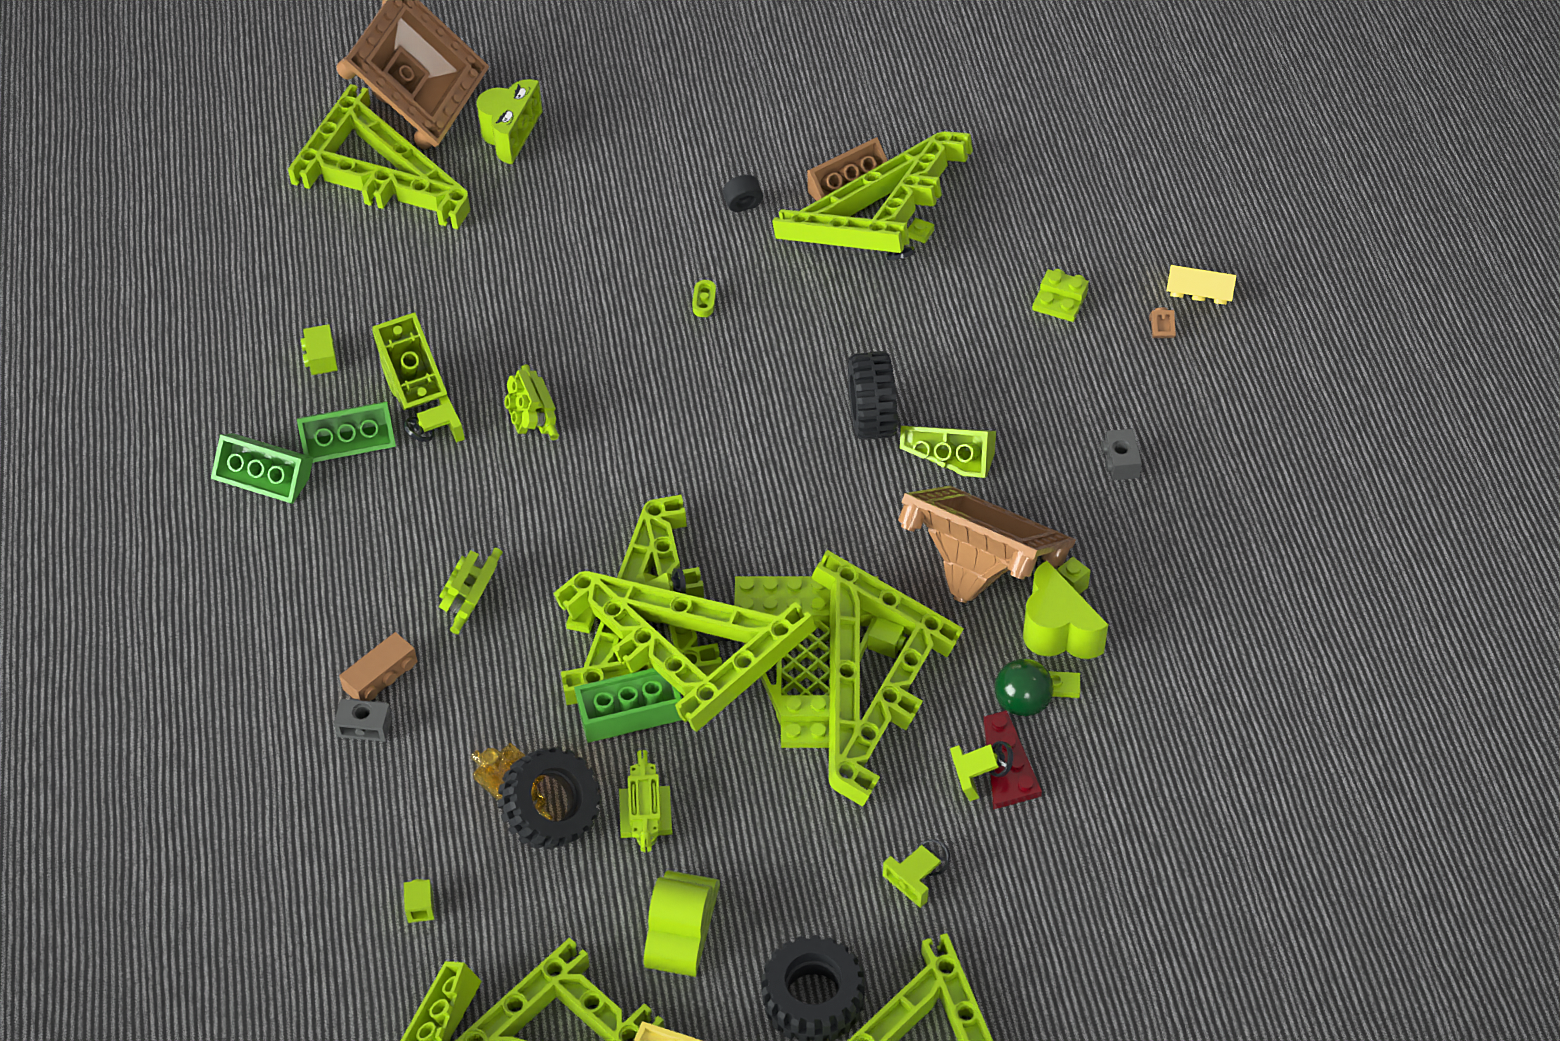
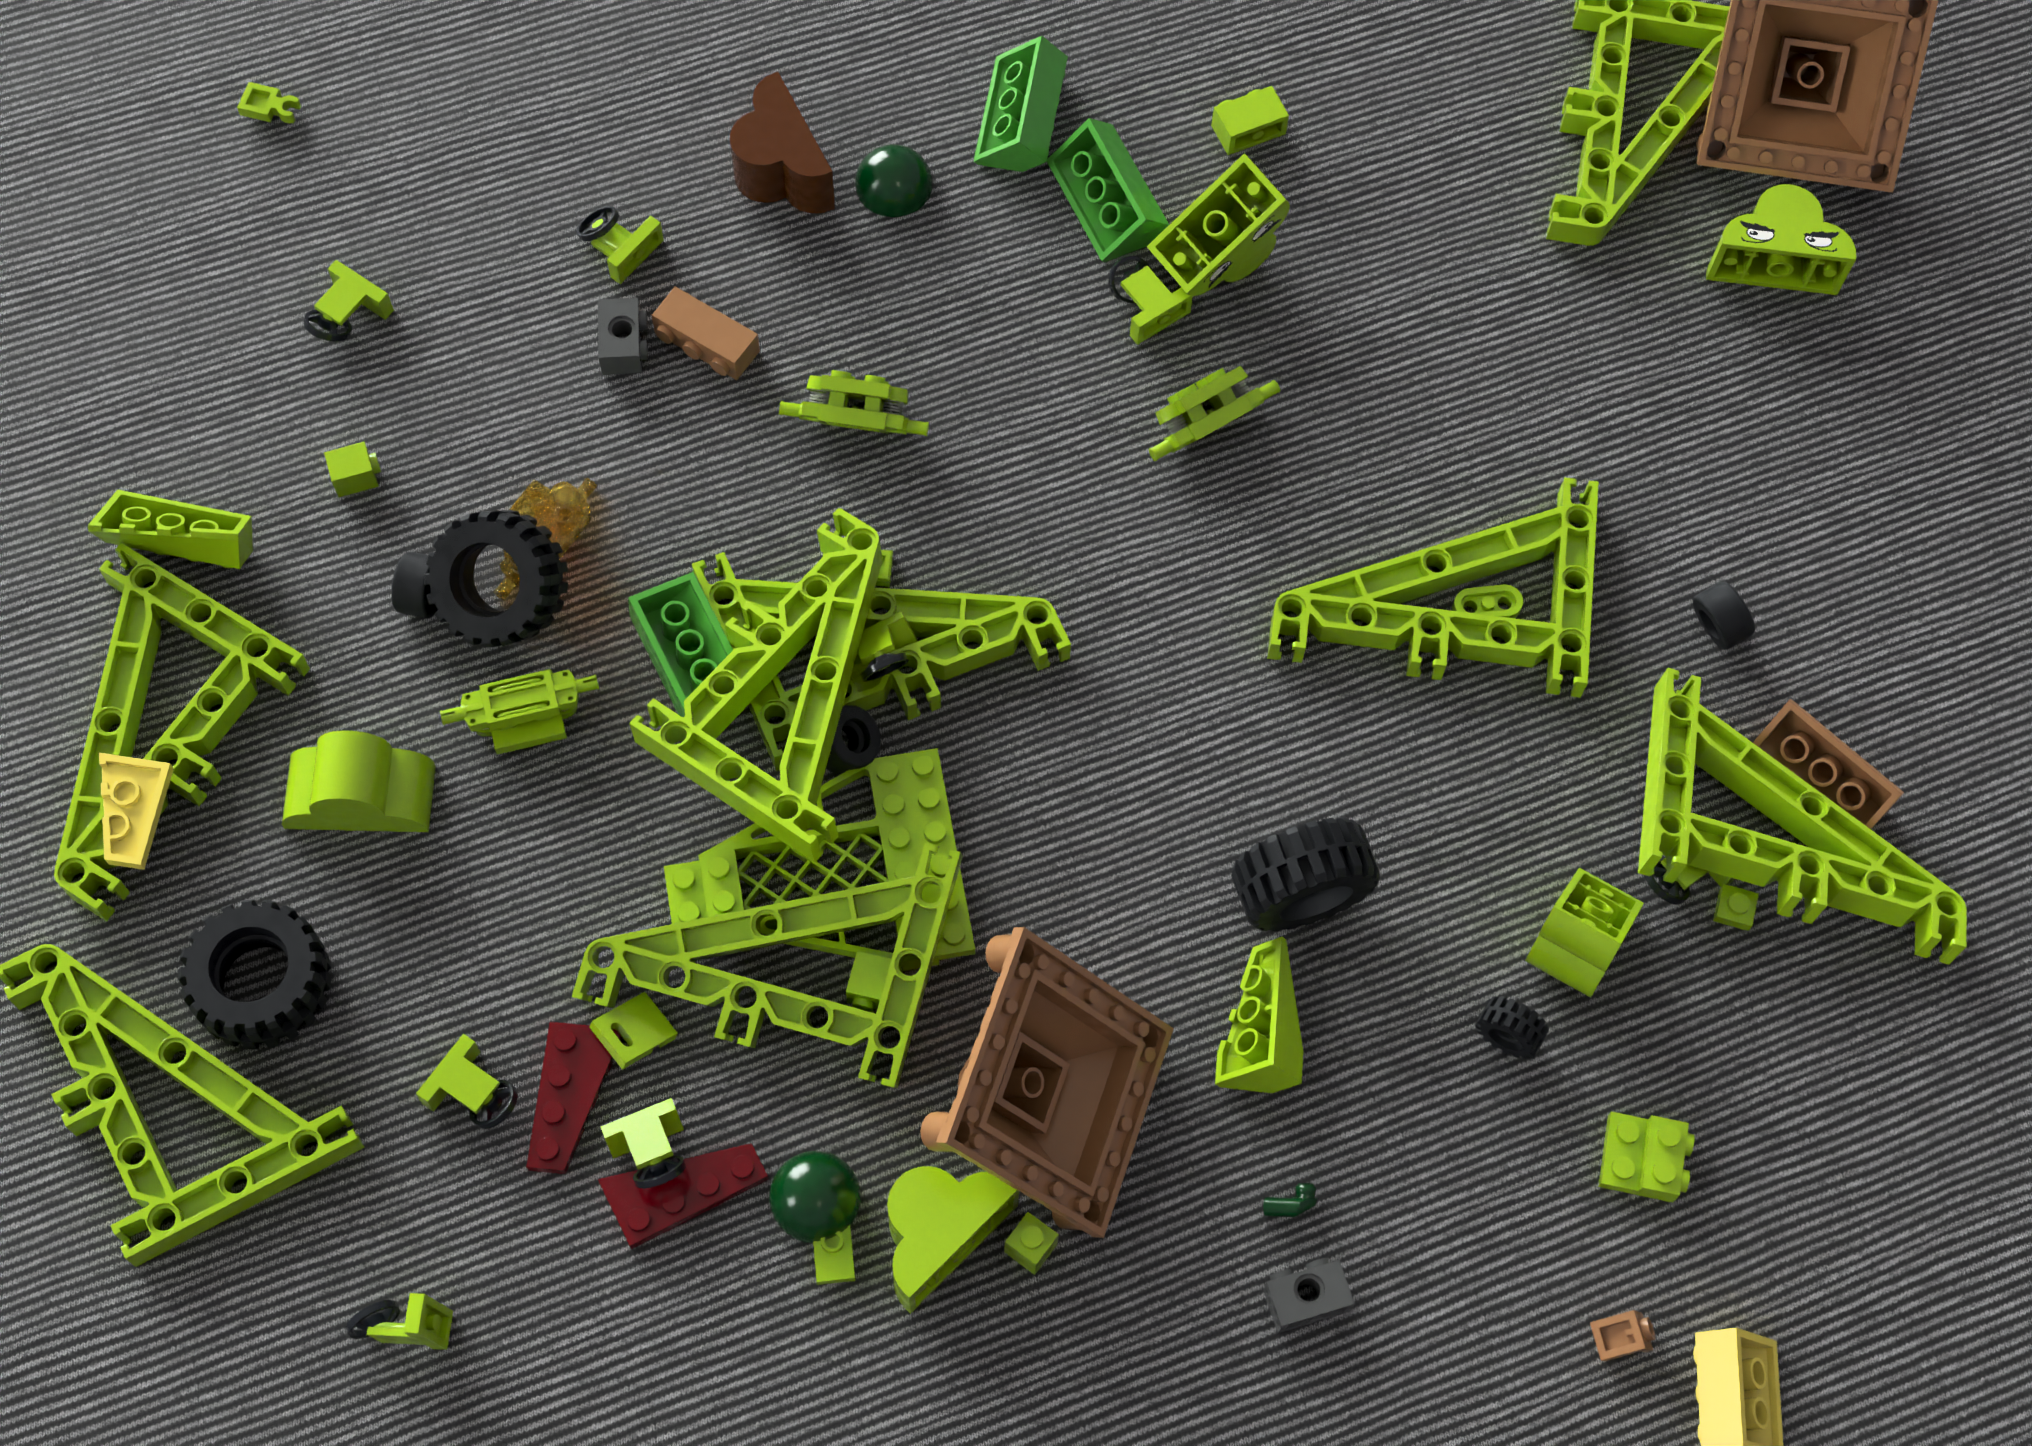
camera: 75 degrees right, 15 degrees up
(67, 936) = (264, 102): none -> lime plate
(249, 599) = (778, 153): none -> reddish brown brick
(273, 887) = (342, 300): none -> lime piece
(283, 716) = (623, 248): none -> lime piece
(290, 549) = (893, 181): none -> dark green piece
(531, 861) = (408, 586): none -> black tyre
(693, 361) = (1378, 589): none -> lime piece
(895, 770) = (640, 1026): none -> lime piece
(925, 816) = (567, 1093): none -> dark red wing
(930, 287) = (1584, 932): none -> lime brick
(978, 331) = (1512, 1027): none -> black tyre
(1066, 453) = (1294, 1206): none -> dark green arm
(1081, 902) = (425, 1322): none -> lime piece

